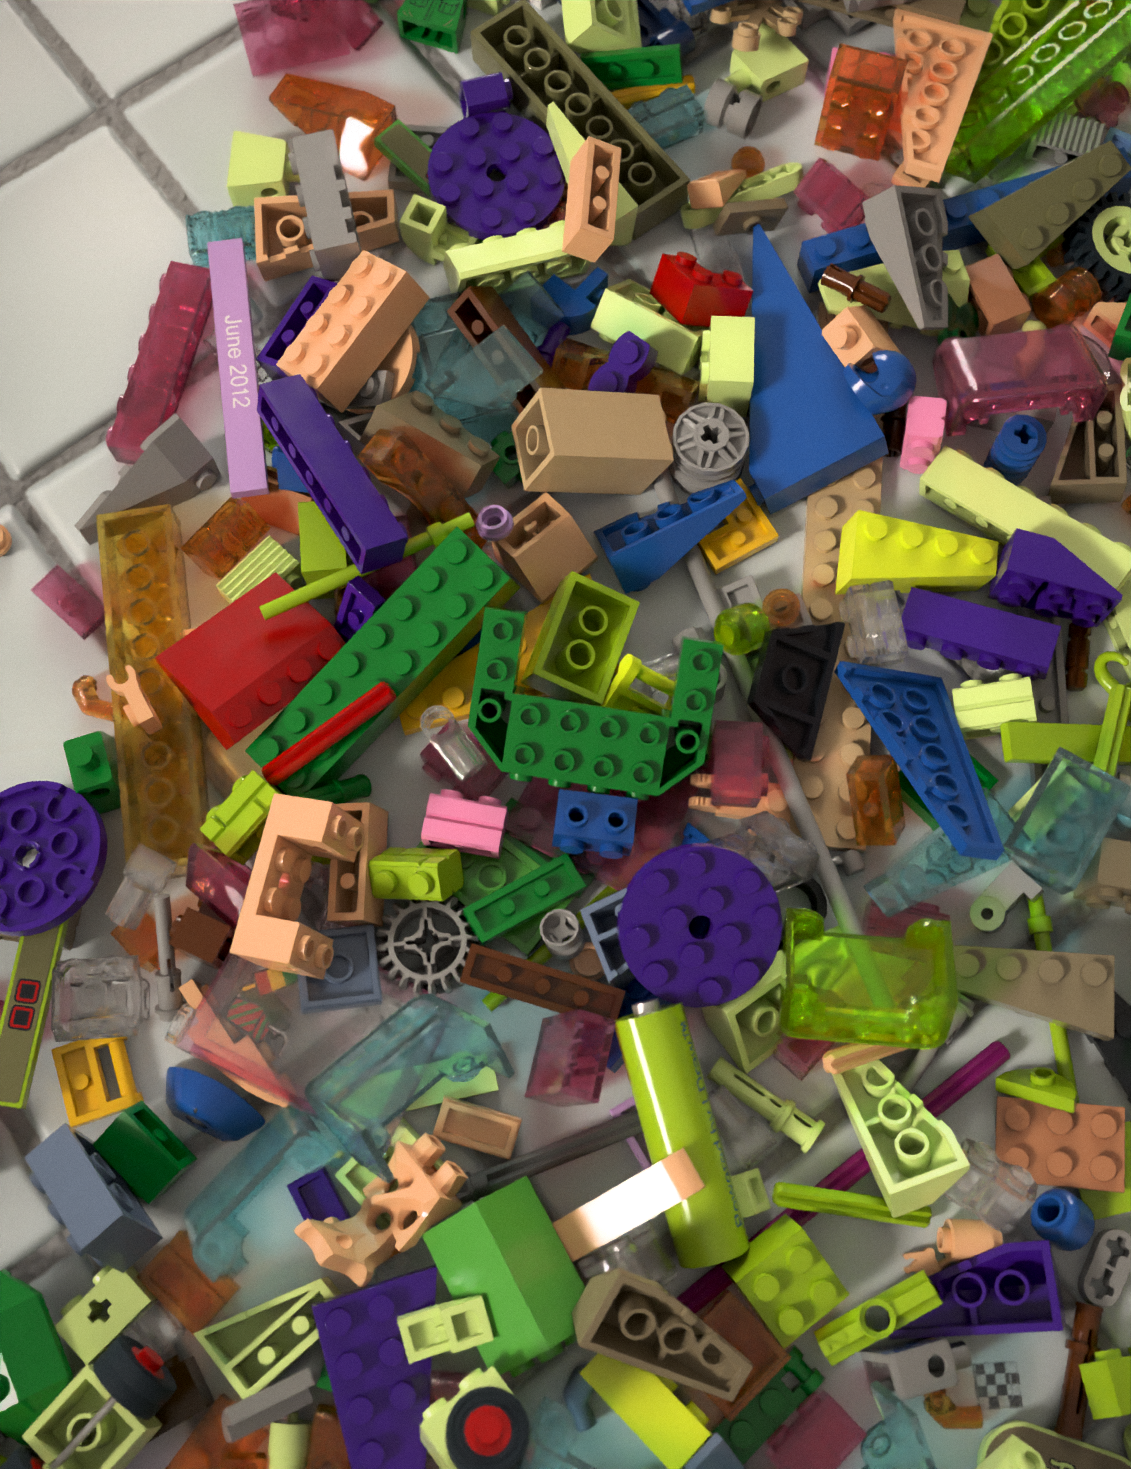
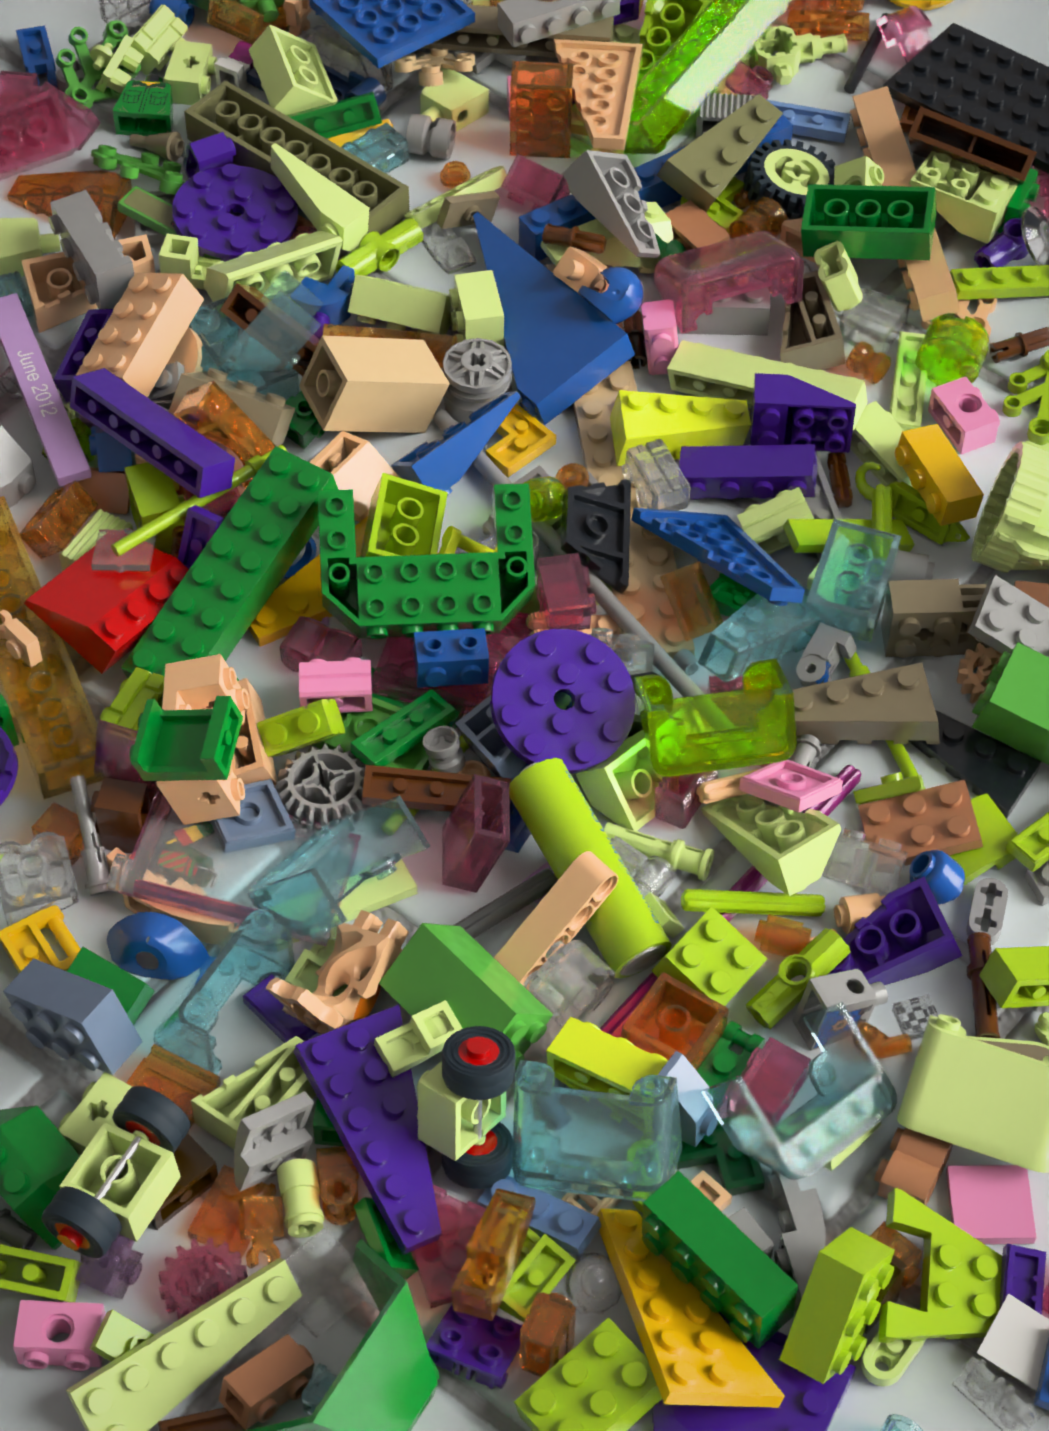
camera: 15 degrees left, 20 degrees down
(145, 876) = (56, 766): clear piece -> none
(266, 589) = (136, 559): none -> clear piece
(266, 915) = (186, 742): none -> green panel
(329, 733) = (201, 623): red axle -> none
(412, 87) = (168, 174): none -> bright green plant
(446, 64) = (166, 145): none -> dark tan cone
(454, 744) = (308, 623): clear piece -> none
(477, 1127) = (407, 911): light nougat tile -> none
(494, 515) = (306, 451): lavender plate -> none
(592, 199) = (329, 201): light nougat brick -> none
(627, 364) = (391, 318): dark purple brick -> none
(643, 248) = (383, 249): none -> lime piece
(655, 1332) = (601, 987): dark tan wedge -> none
(696, 293) = (433, 266): red brick -> none
(714, 188) = (430, 193): light nougat slope -> none
(875, 1253) = (782, 936): none -> clear orange brick
(929, 1079) = (791, 785): none -> bright pink tile
(1017, 448) = (744, 328): blue piece -> none

